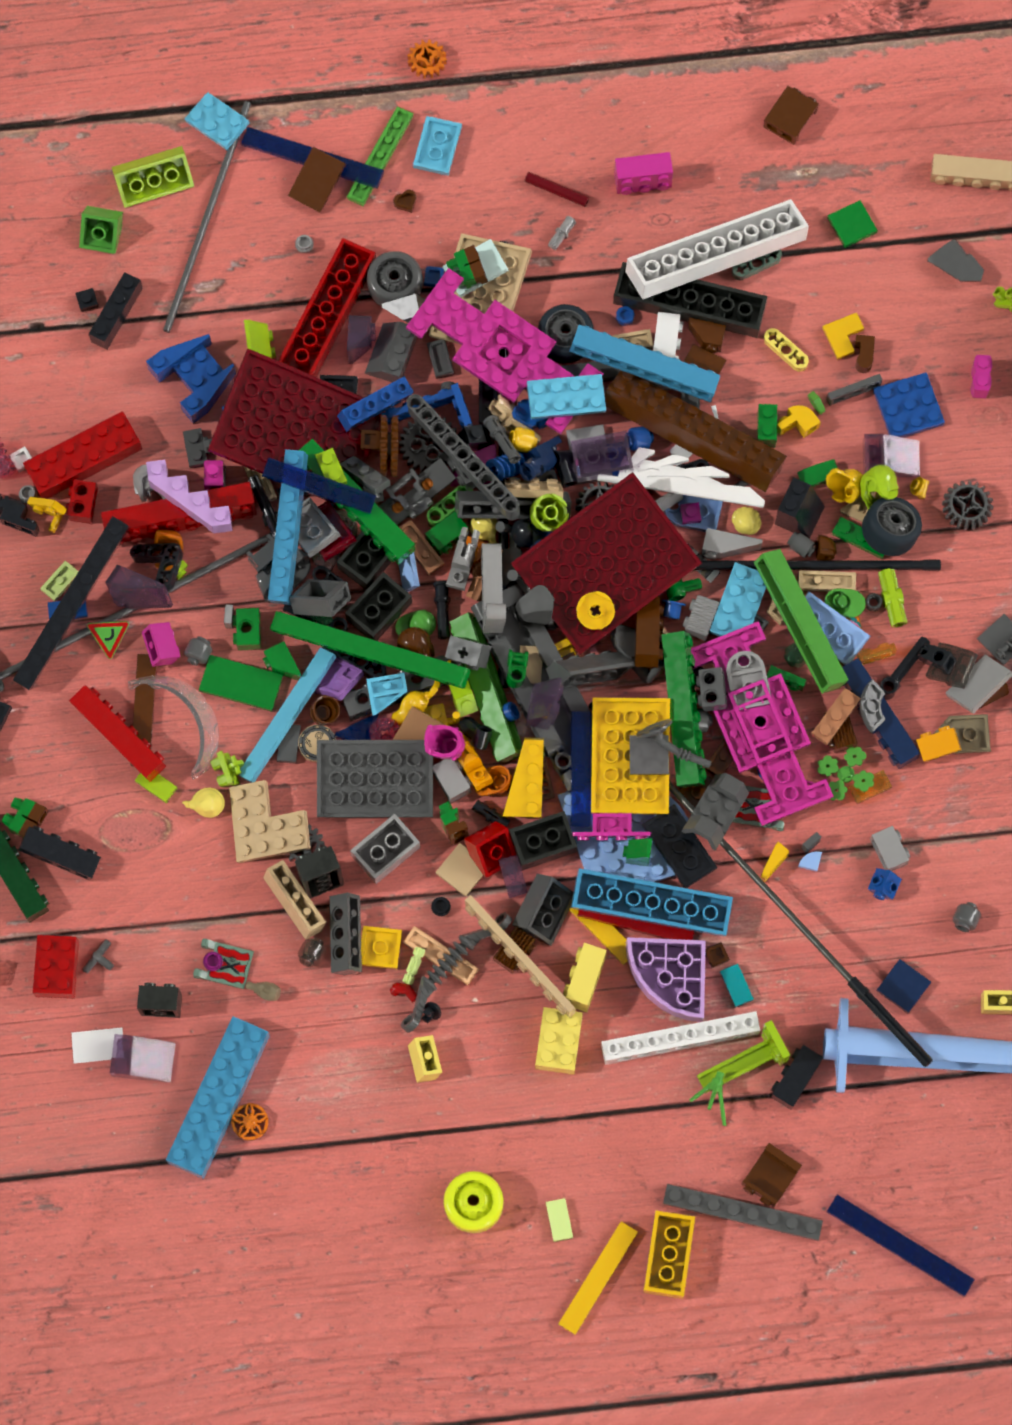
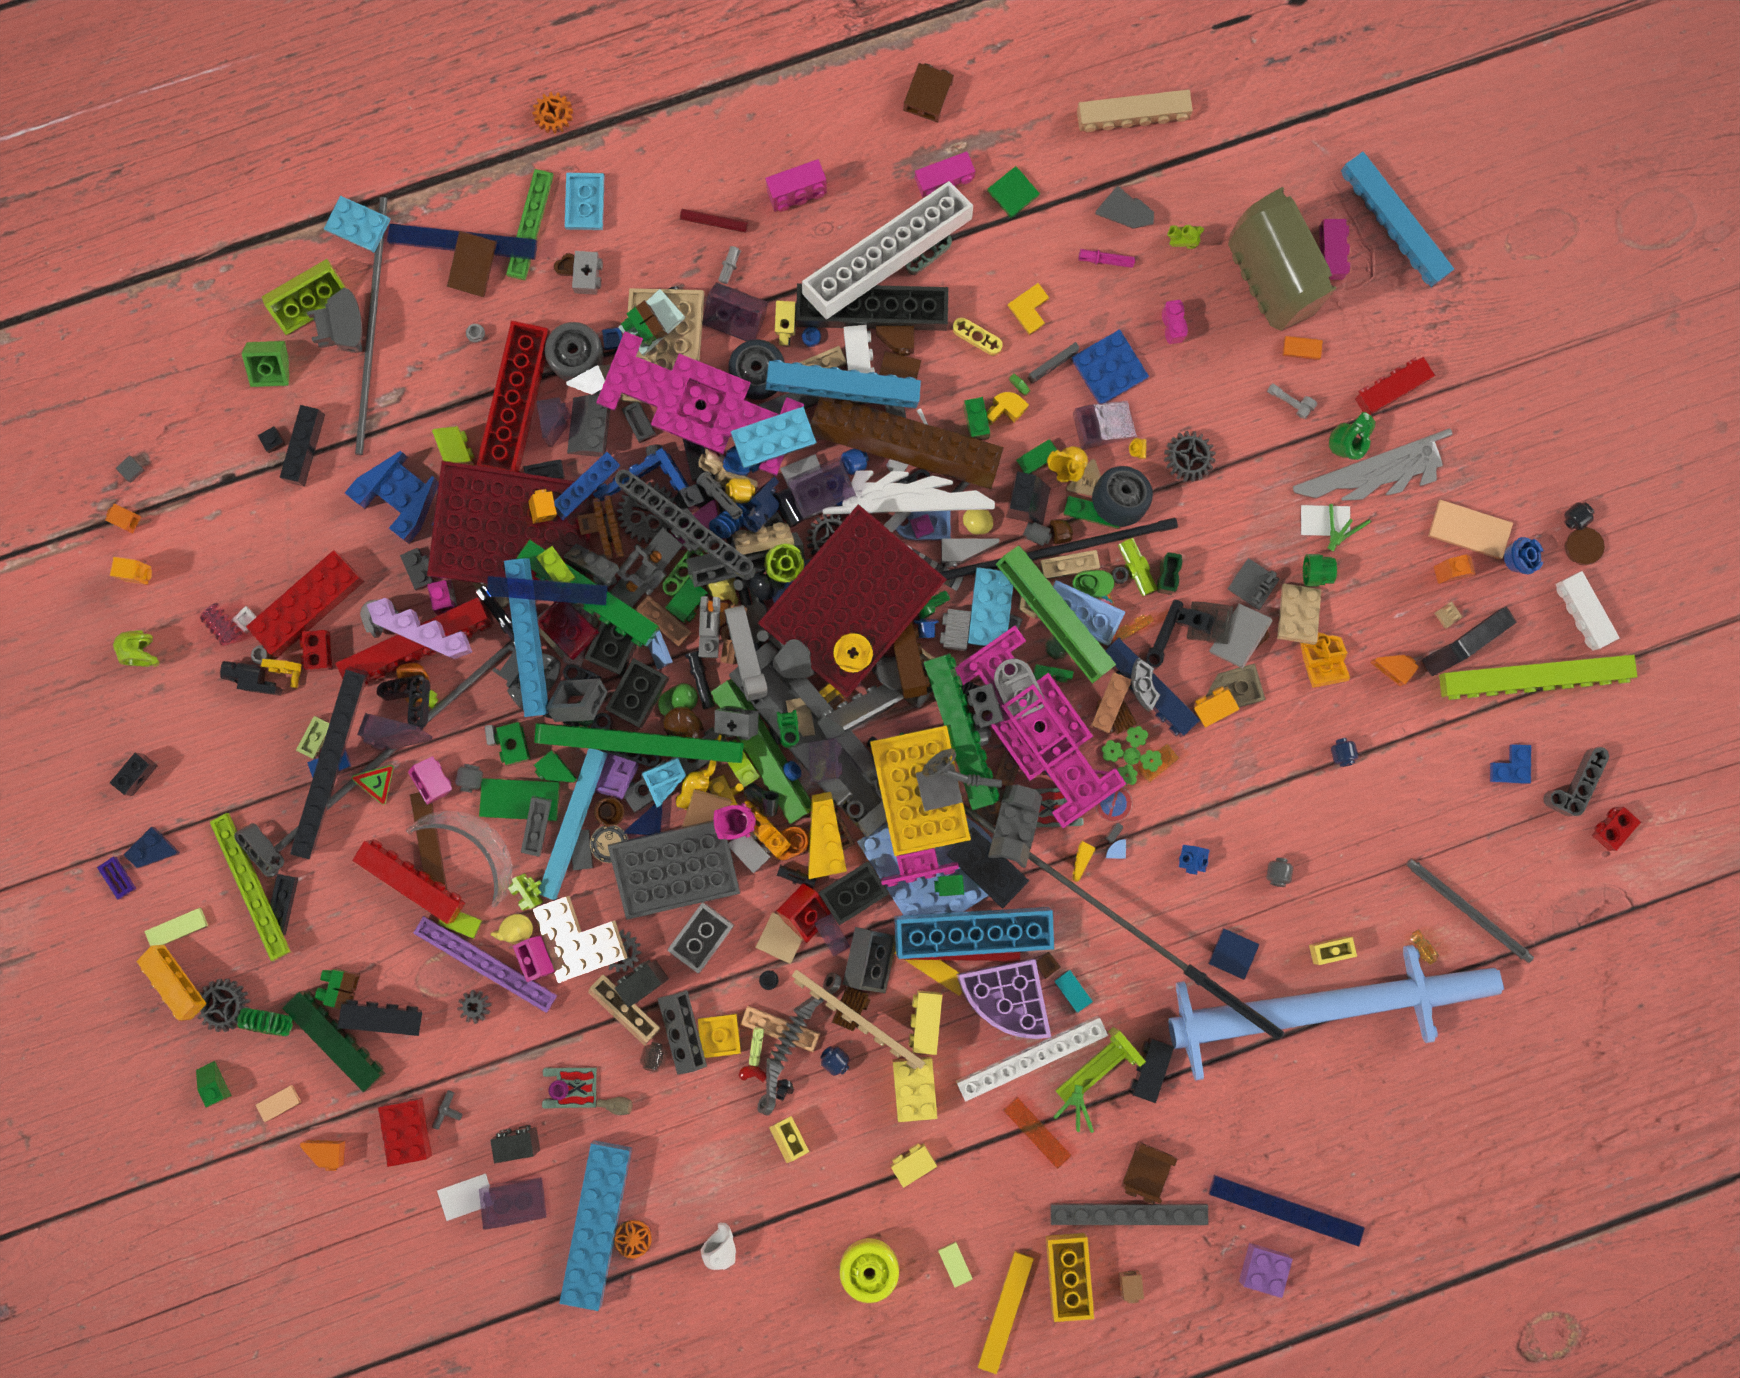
camera: 20 degrees left, 10 degrees up
(143, 867) = (475, 1014): none -> dark grey gear
(171, 828) = (485, 964): none -> medium lavender plate
(179, 206) = (339, 322): none -> dark grey piece
(219, 832) = (533, 958): none -> dark pink brick
(251, 709) = (536, 826): none -> dark grey plate
(315, 529) = (554, 629): light grey tile -> none
(331, 411) = (542, 506): none -> light orange brick
(333, 1149) = (719, 1249): none -> white helmet
(383, 724) = (669, 813): clear pink gear -> none
(424, 201) = (582, 263): none -> light grey brick
(450, 823) = (759, 898): hips -> none
(487, 996) = (834, 1060): none -> dark blue head
(540, 1113) = (913, 1165): none -> light yellow brick
(556, 277) = (734, 312): none -> slope
(580, 769) = (874, 814): clear blue tile -> none
(605, 289) = (785, 314): none -> light yellow torso
(669, 1112) = (1037, 1132): none -> clear orange plate
(728, 1280) = (1131, 1286): none -> medium nougat brick
(800, 190) = (954, 169): none -> dark pink brick
(819, 818) = (1116, 806): none -> clear piece
(865, 1295) = (1265, 1270): none -> medium lavender brick
(866, 352) = (1056, 322): reddish brown leg -> none
(879, 480) = (1101, 454): lime helmet -> none
(890, 849) = (1191, 821): light grey brick -> none
(921, 301) = (1105, 258): none -> dark pink axle
(921, 610) = (1169, 569): none -> dark green brick

